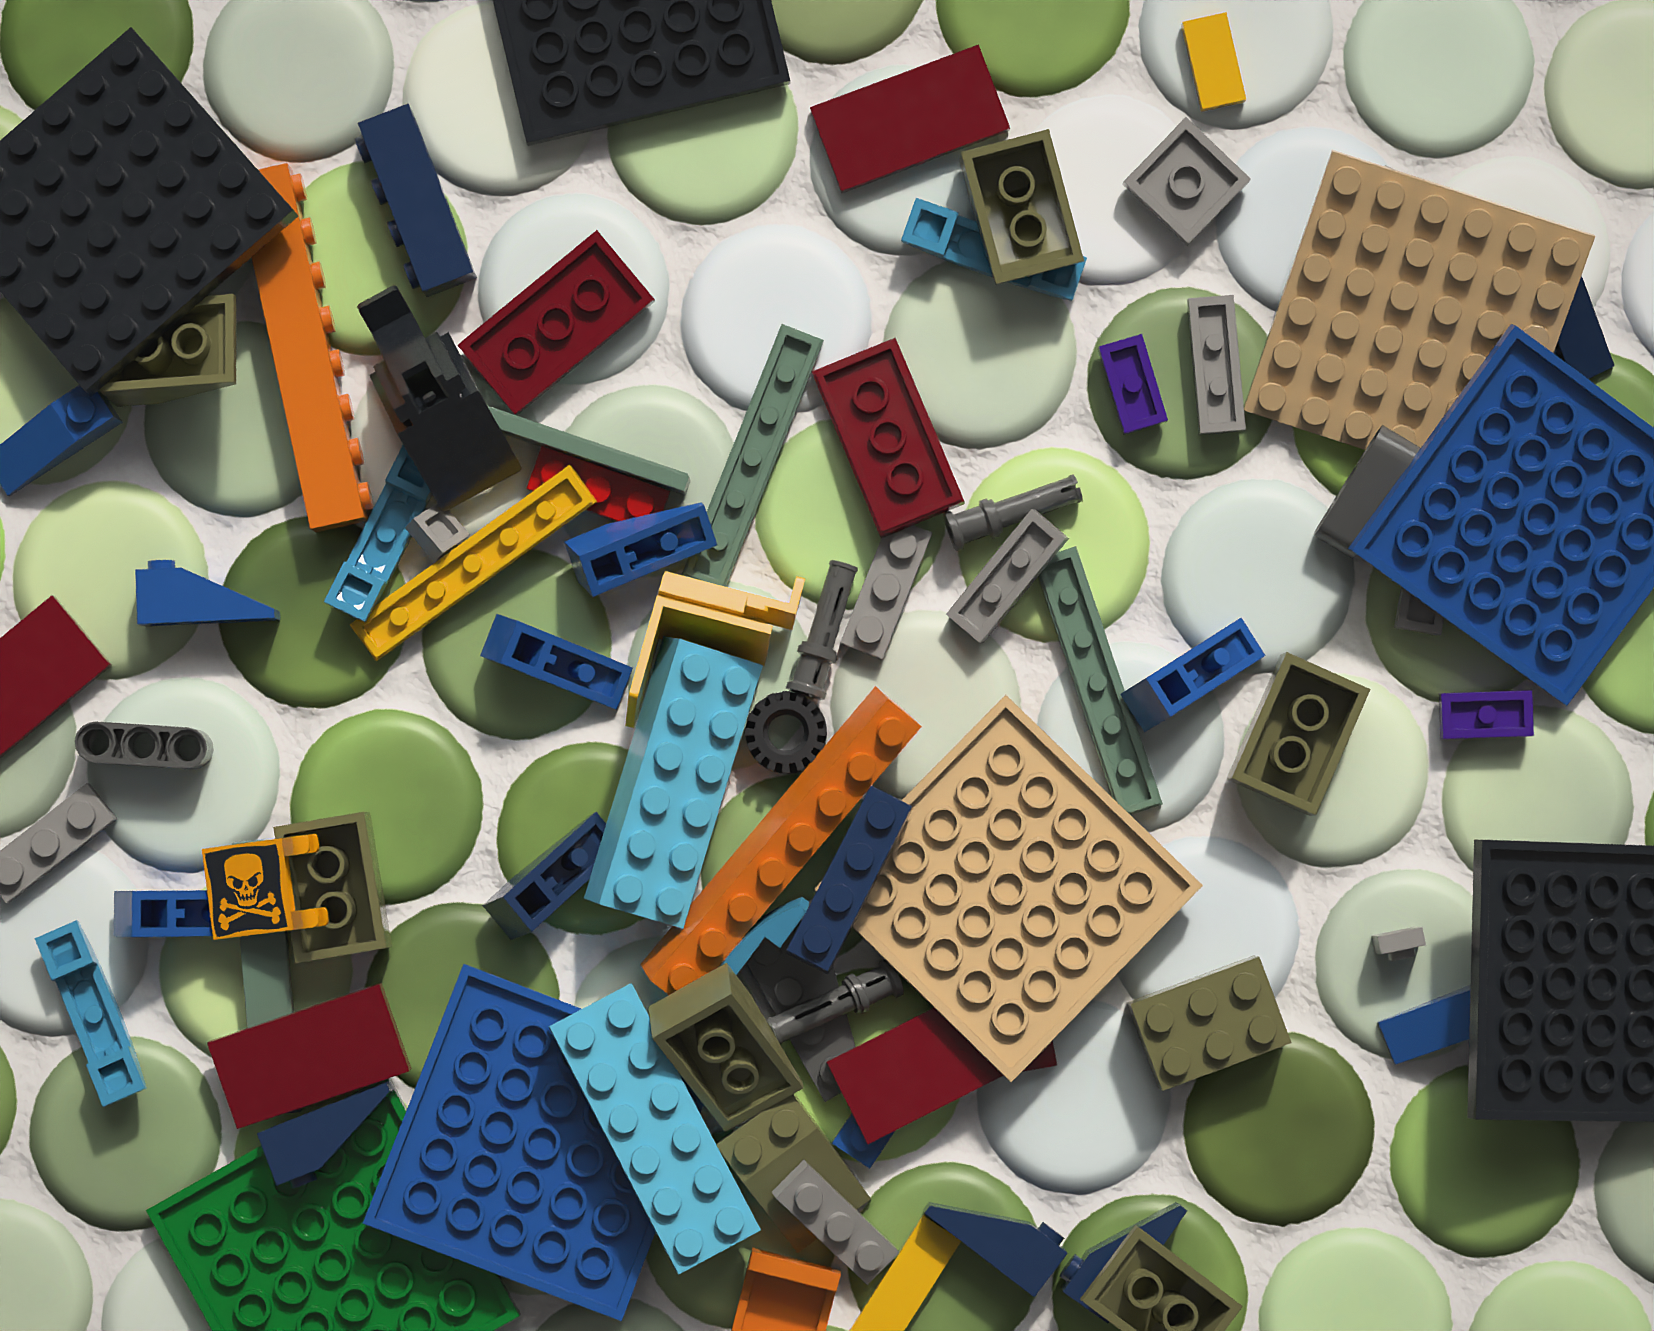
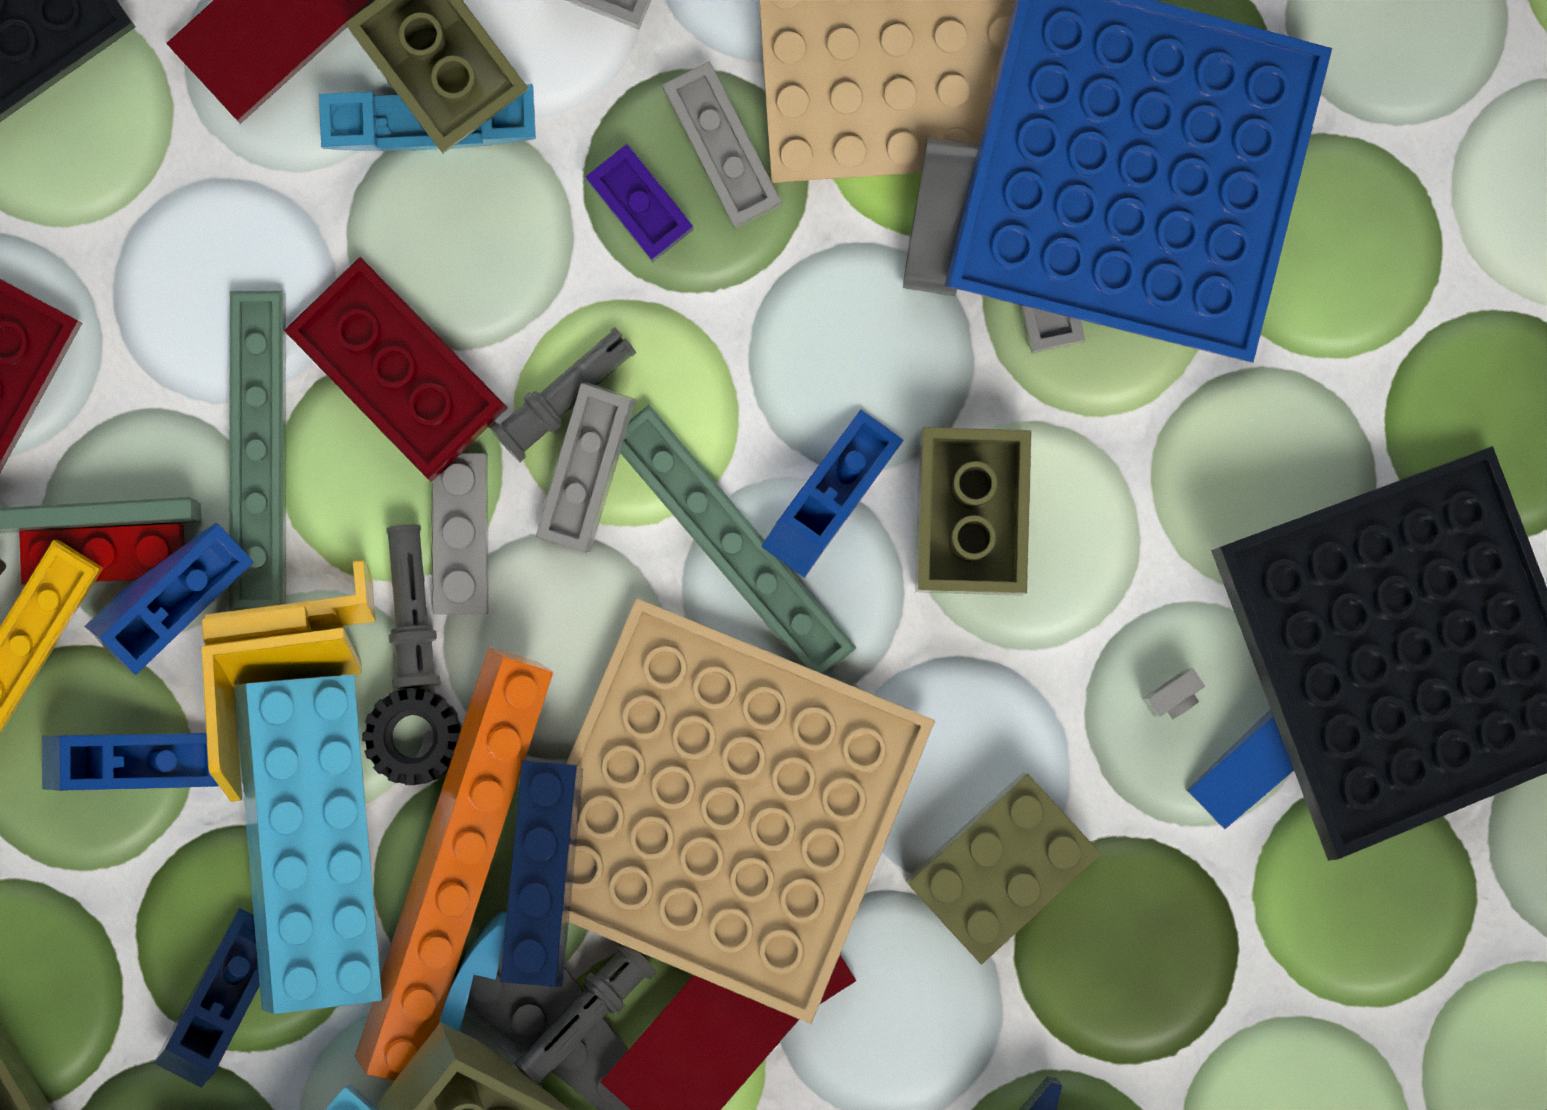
camera: 20 degrees left, 0 degrees up
(1486, 714) = (1169, 407): dark purple plate -> none

